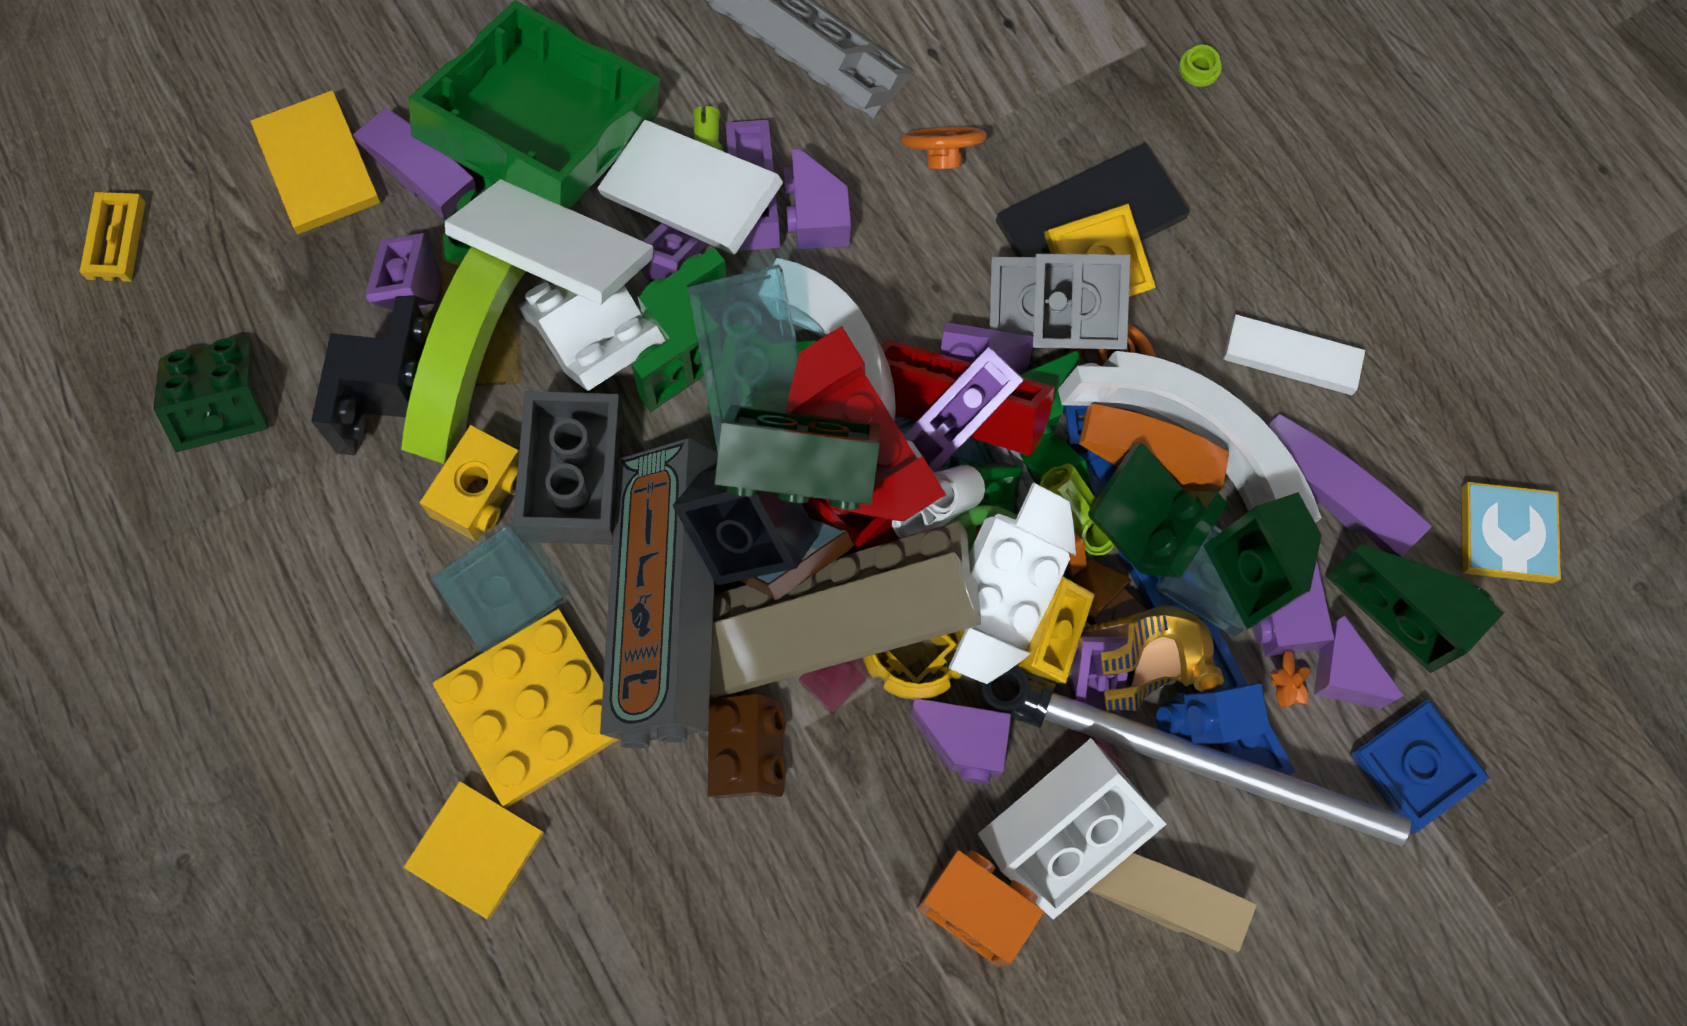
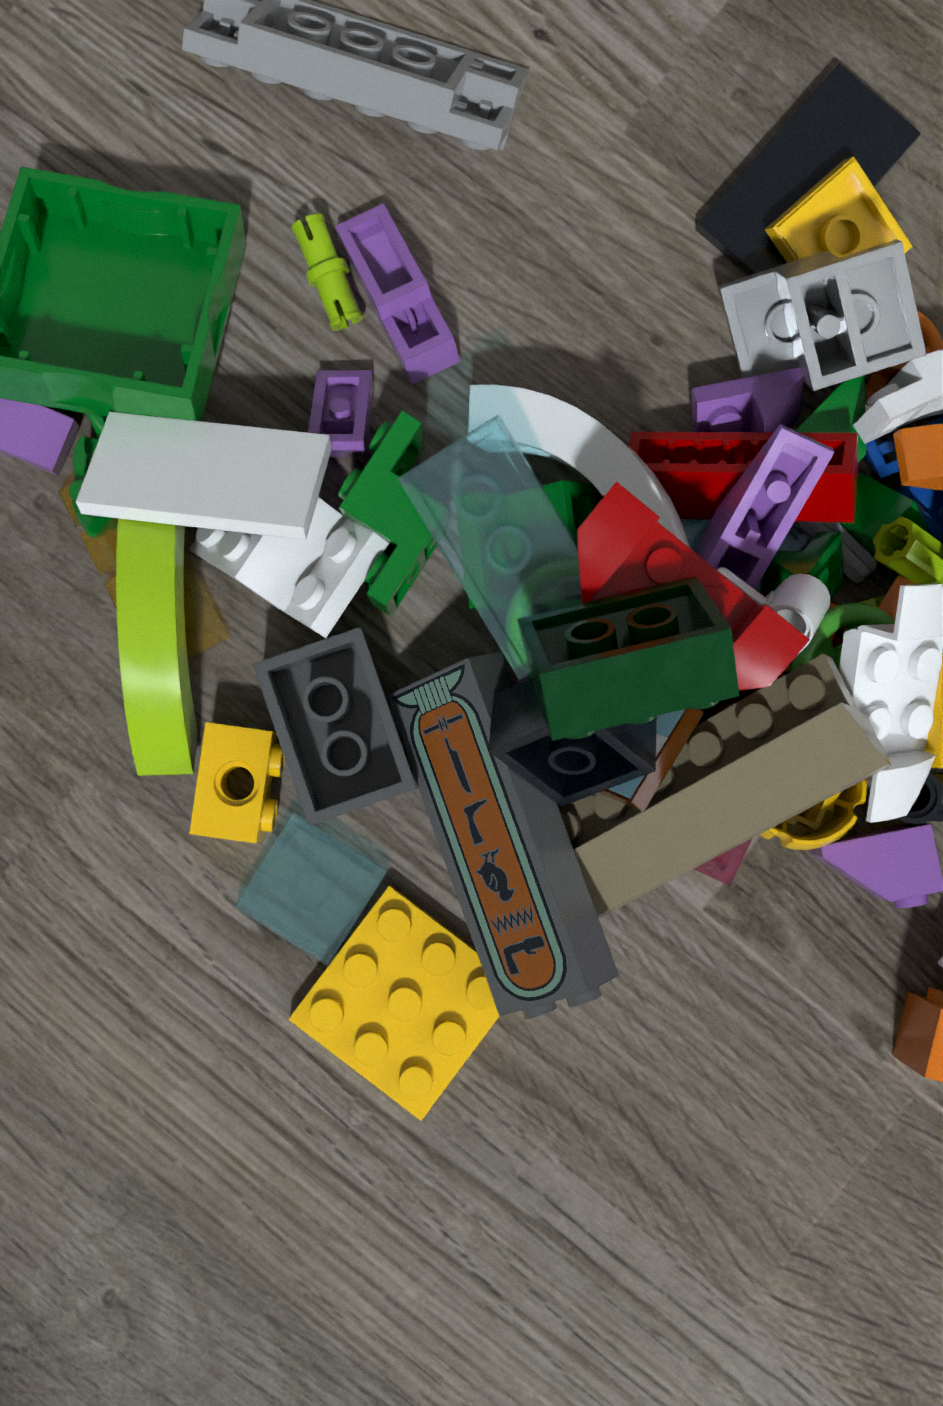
camera: 20 degrees left, 15 degrees up
(369, 377) = (69, 707): black bracket -> none
(404, 269) = (48, 570): medium lavender slope -> none
(474, 850) = (410, 1175): yellow tile -> none
(690, 186) = (332, 330): white tile -> none
(746, 746) = (655, 960): reddish brown bracket -> none
(820, 204) = (487, 289): medium lavender slope -> none
(943, 144) = (601, 158): orange piece -> none

